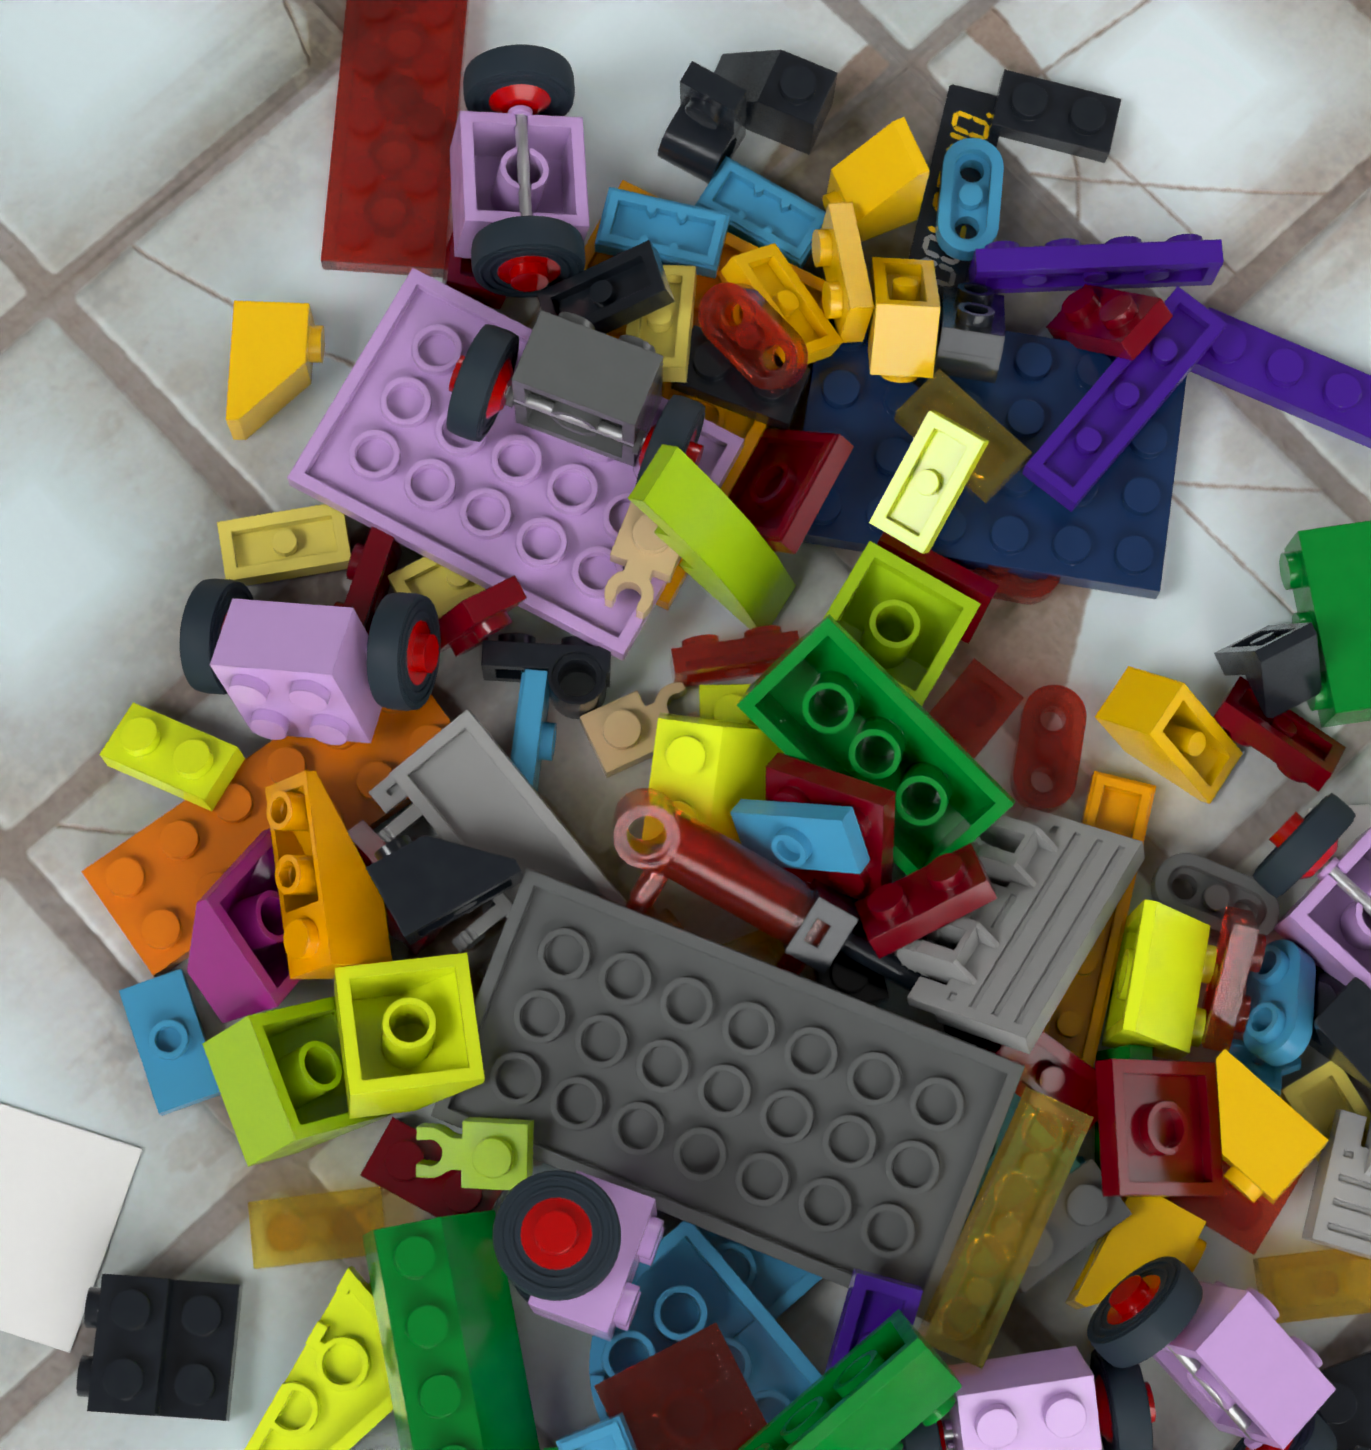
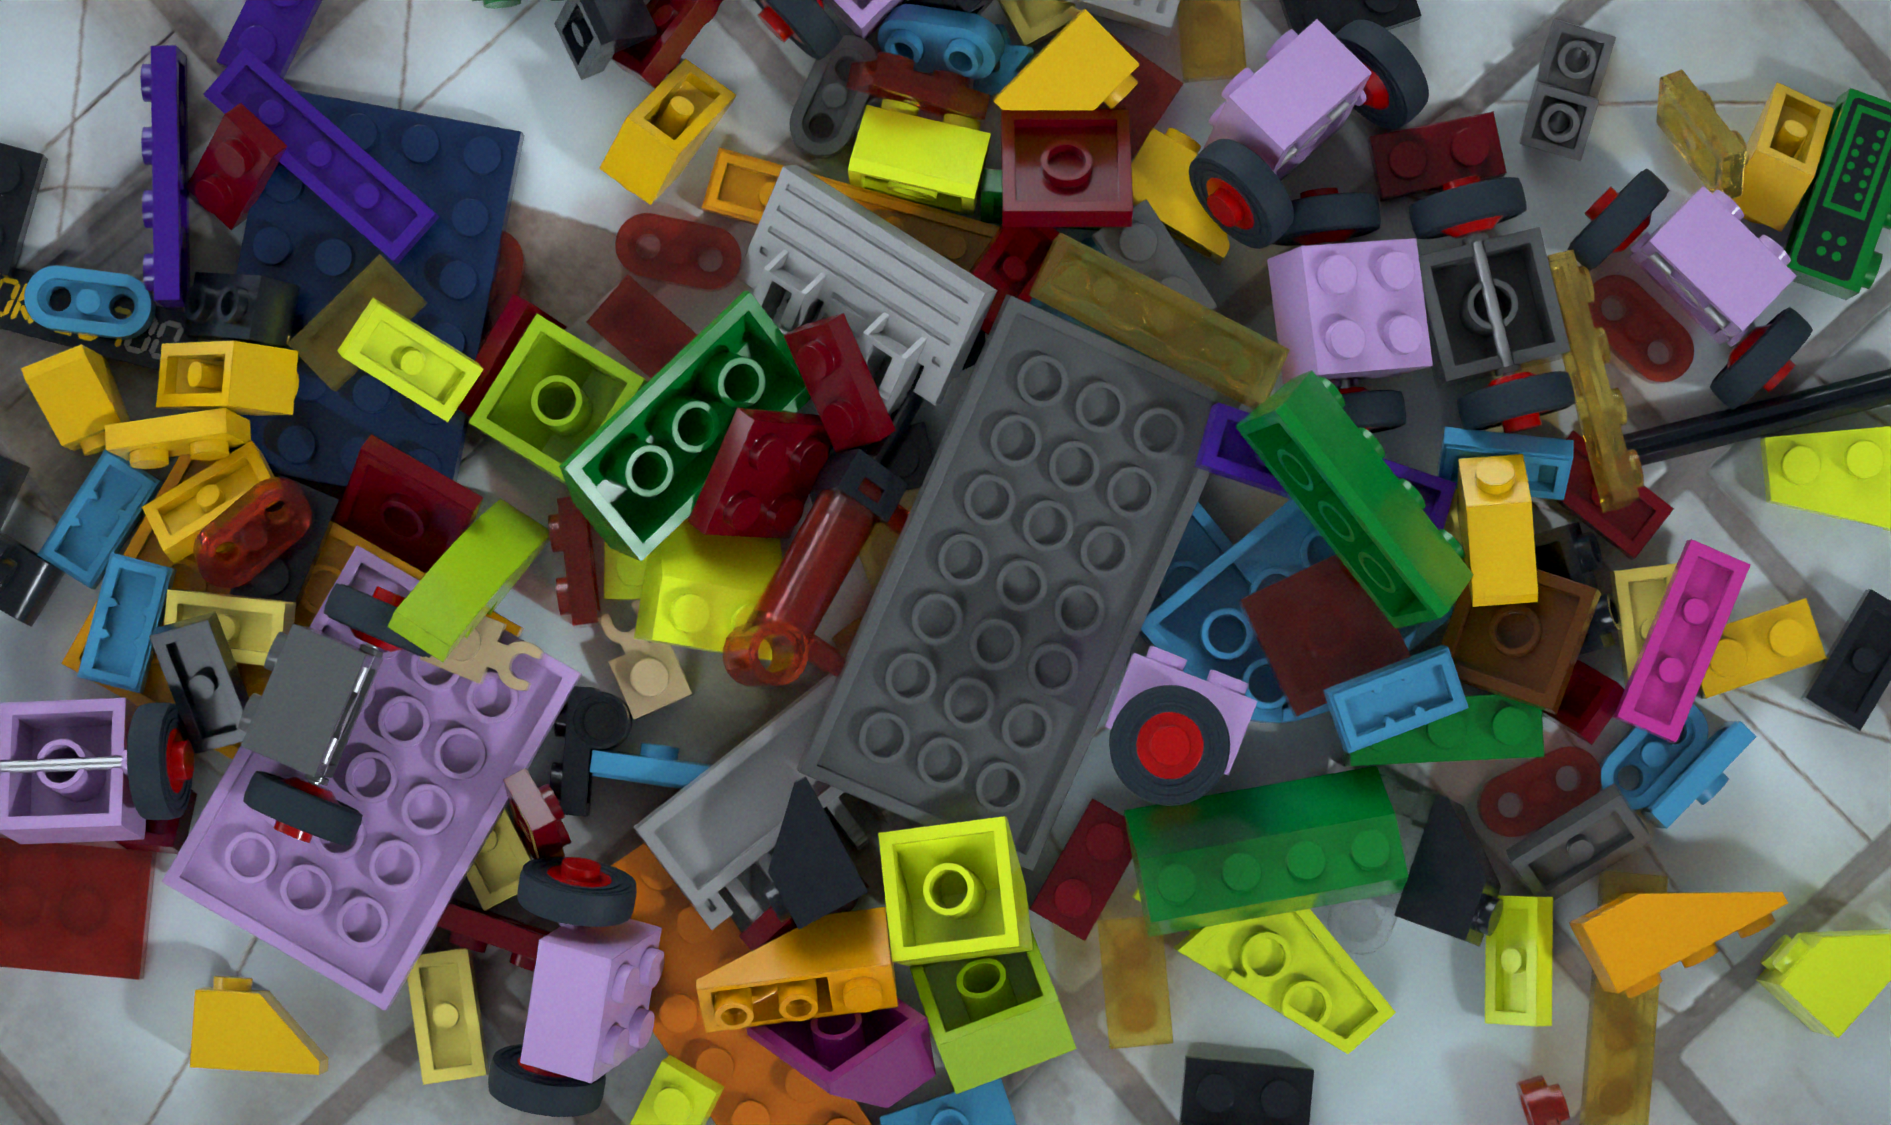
camera: 85 degrees left, 10 degrees up
(488, 1152) = (1071, 814): lime plate -> none
(802, 835) = (773, 502): dark azure plate -> none

